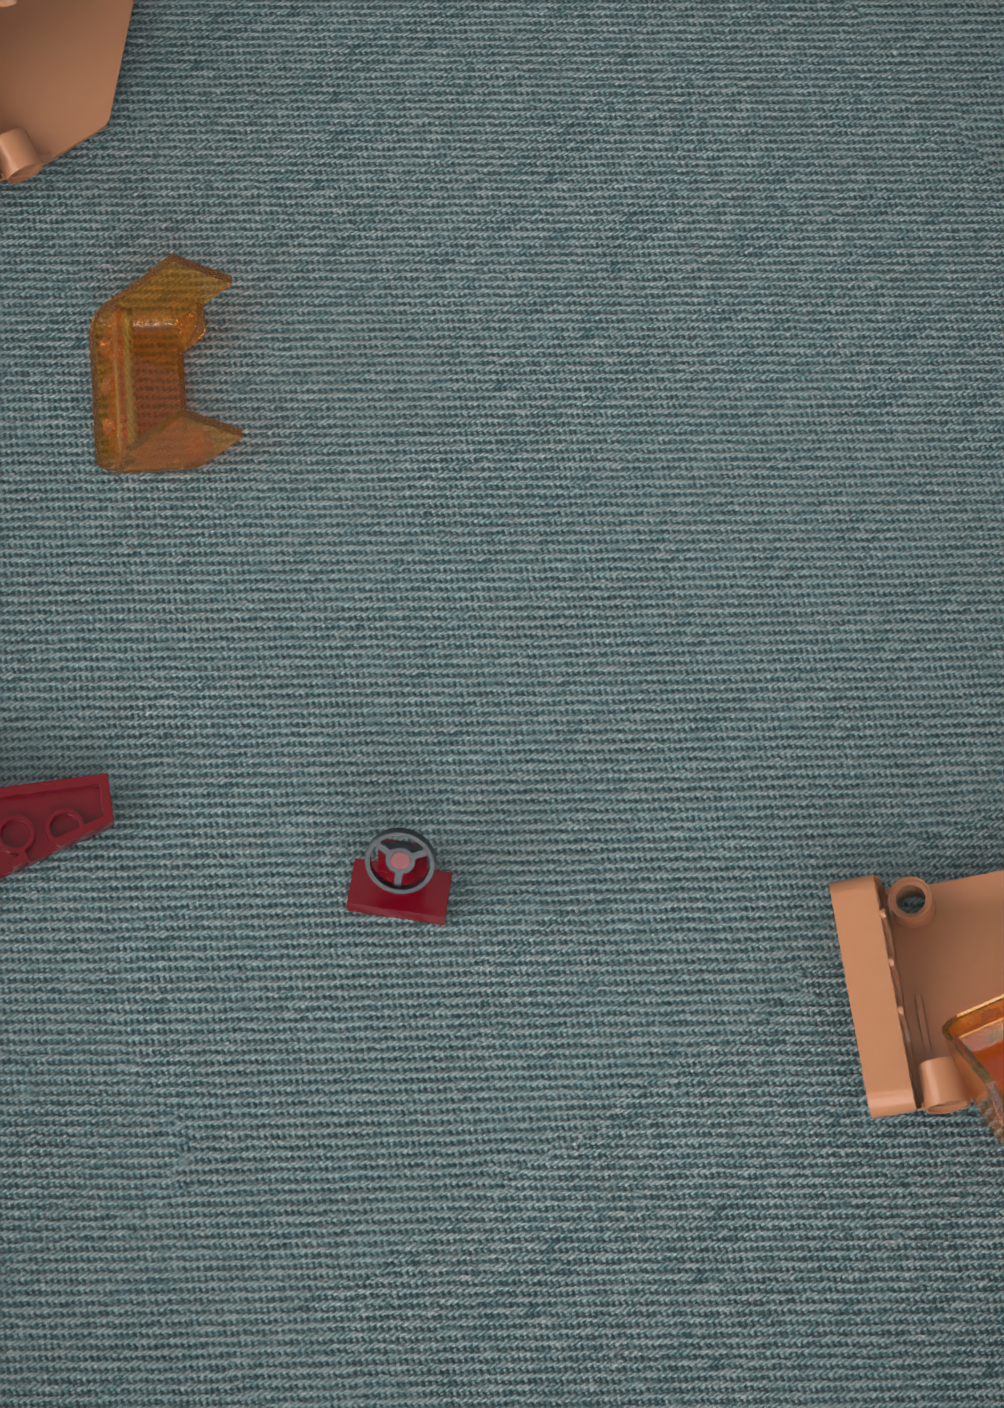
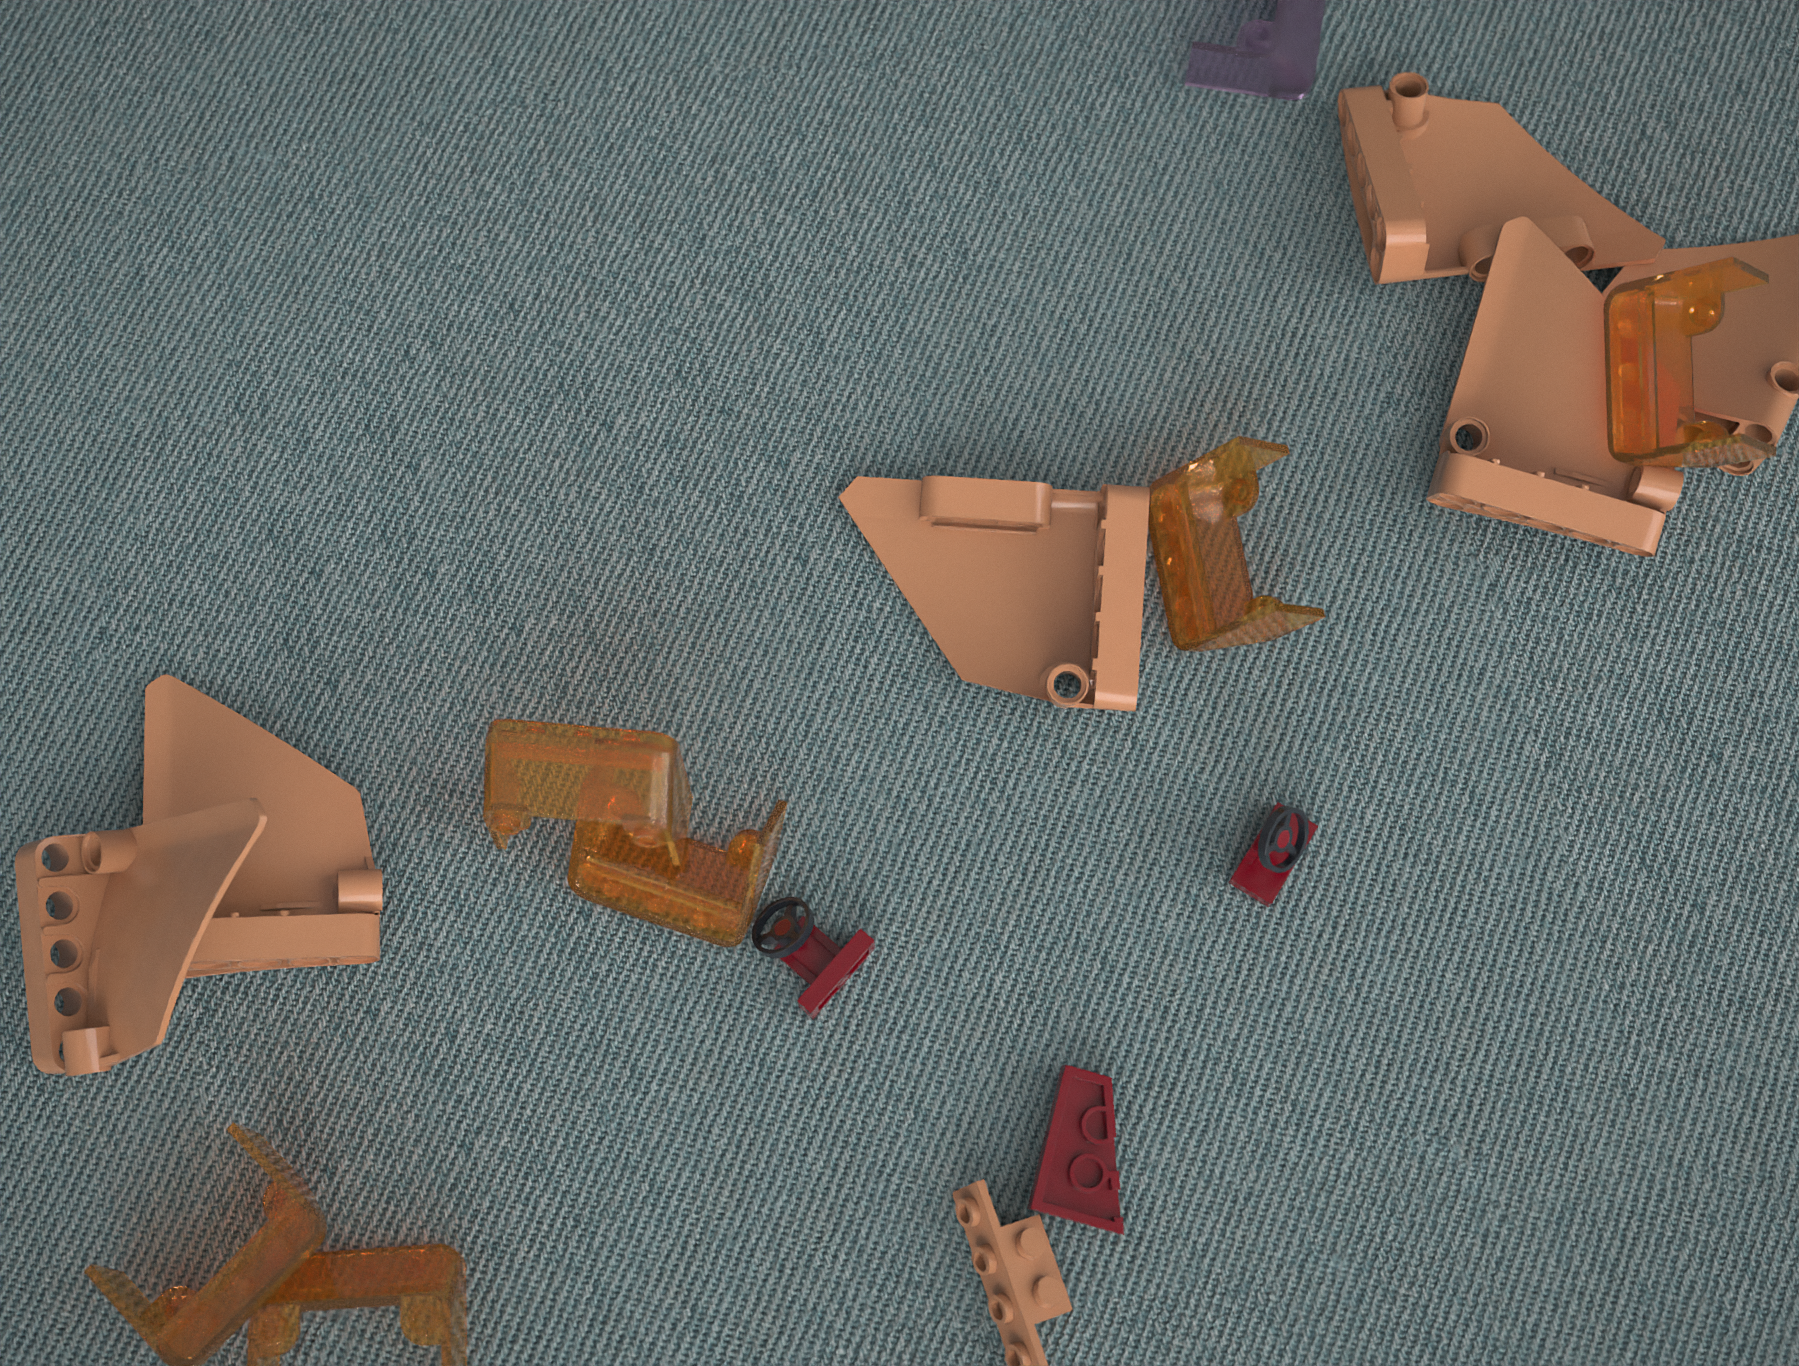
camera: 60 degrees left, 10 degrees up
(121, 540) = (810, 952): none -> dark red piece
(187, 273) = (586, 777): none -> clear orange windscreen
(566, 571) = (1018, 578): none -> nougat panel
(678, 719) = (1203, 554): none -> clear orange windscreen

